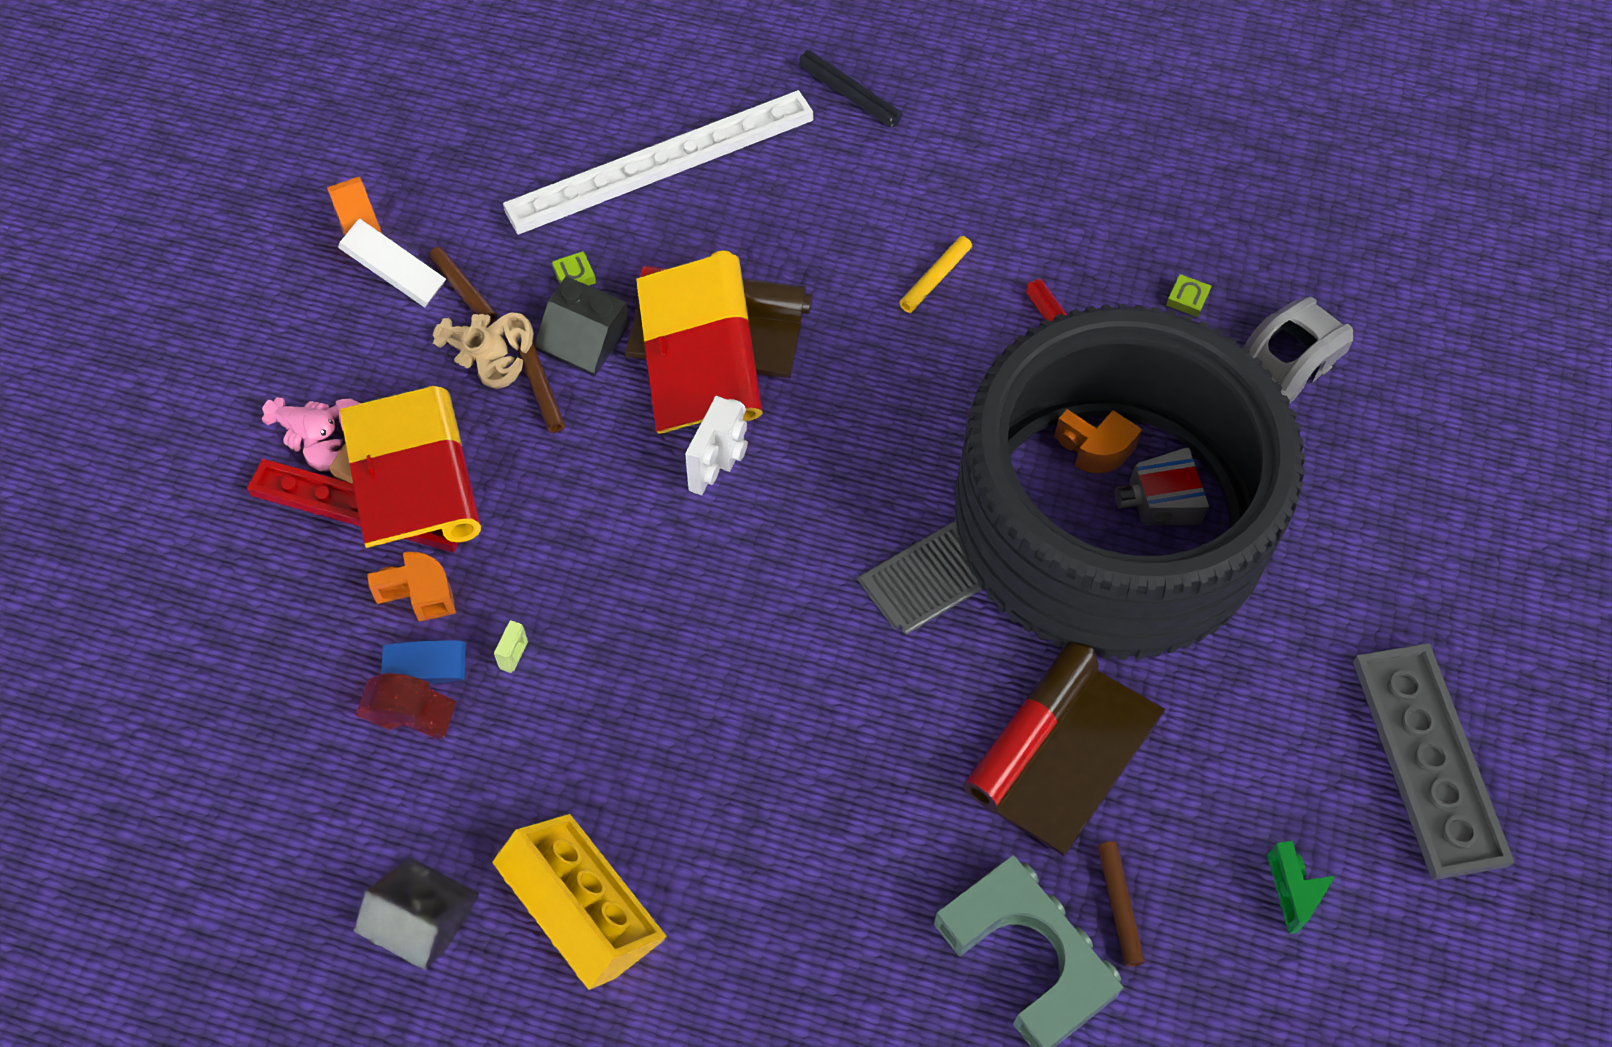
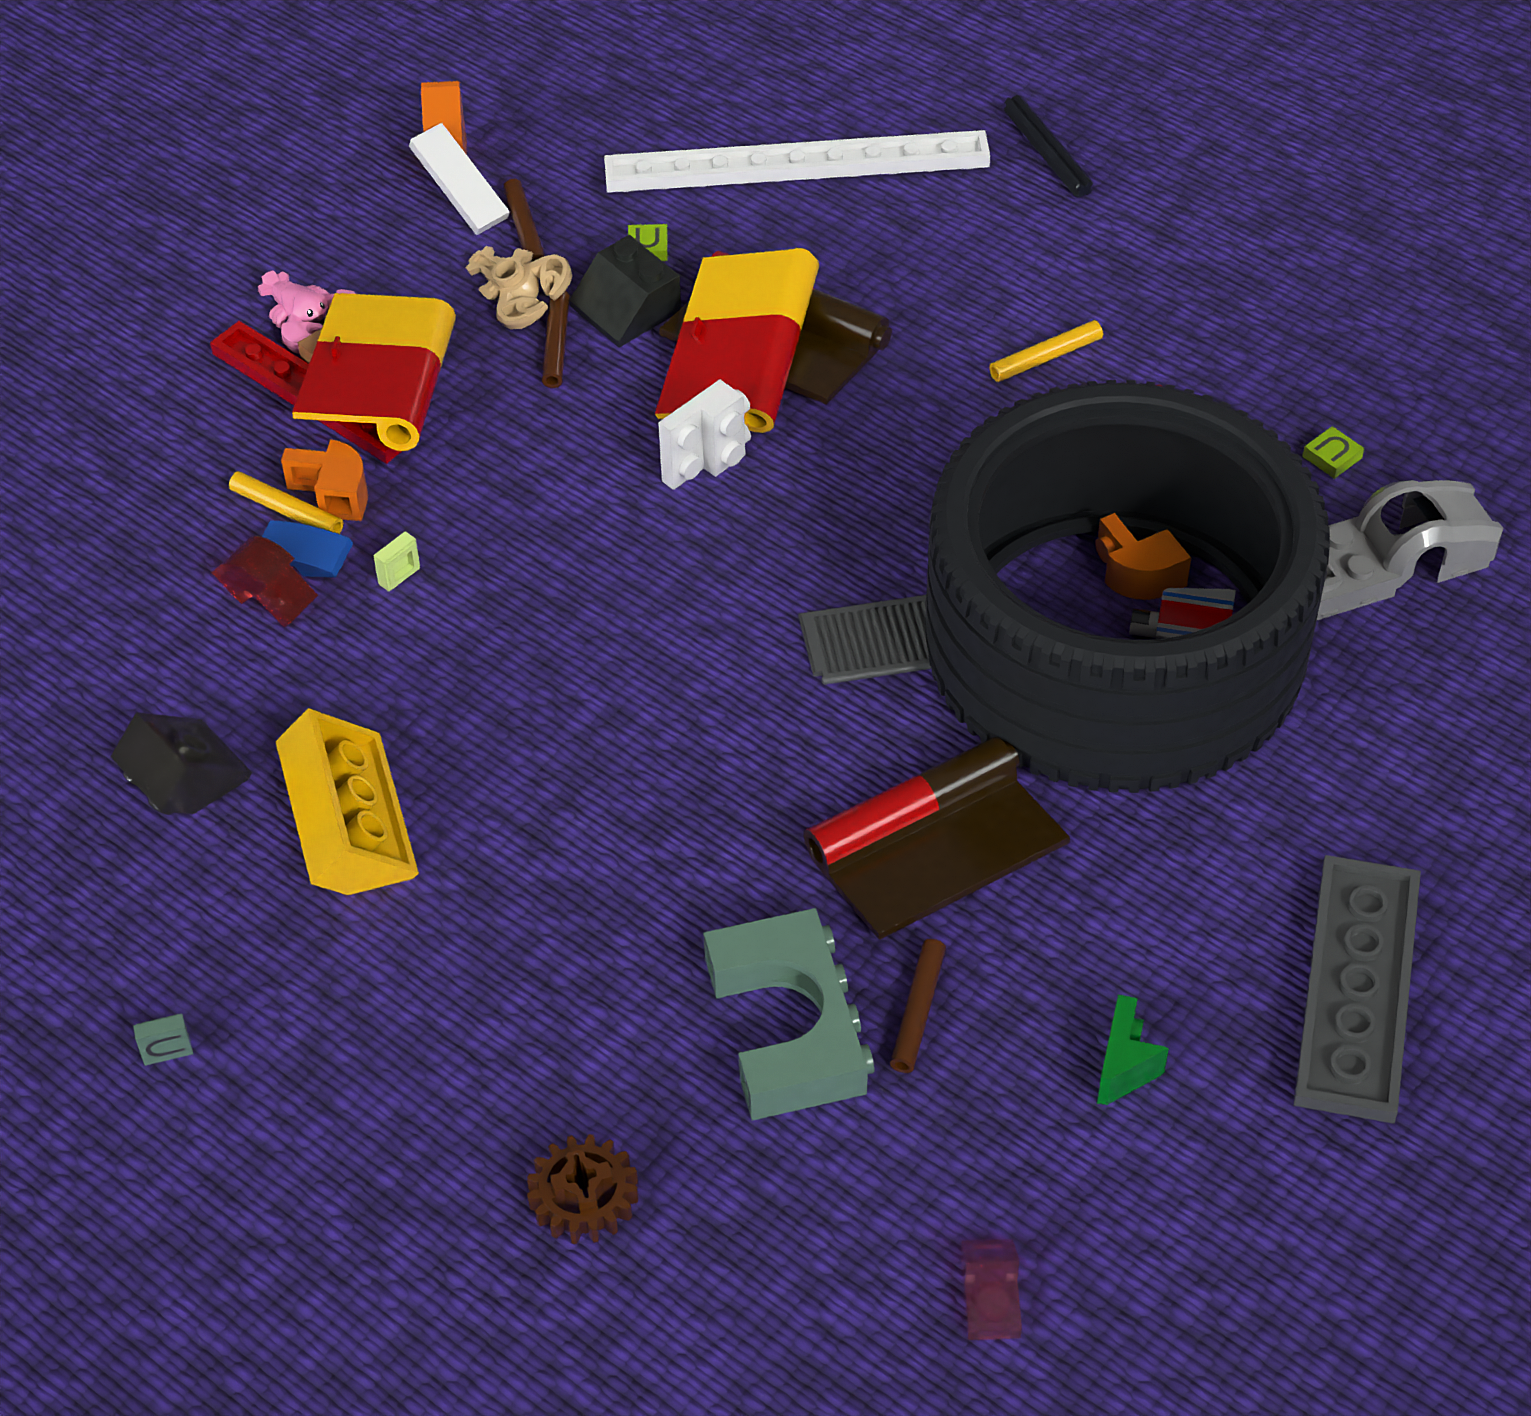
camera: 25 degrees right, 10 degrees down
(385, 622) = (284, 503): none -> yellow piece

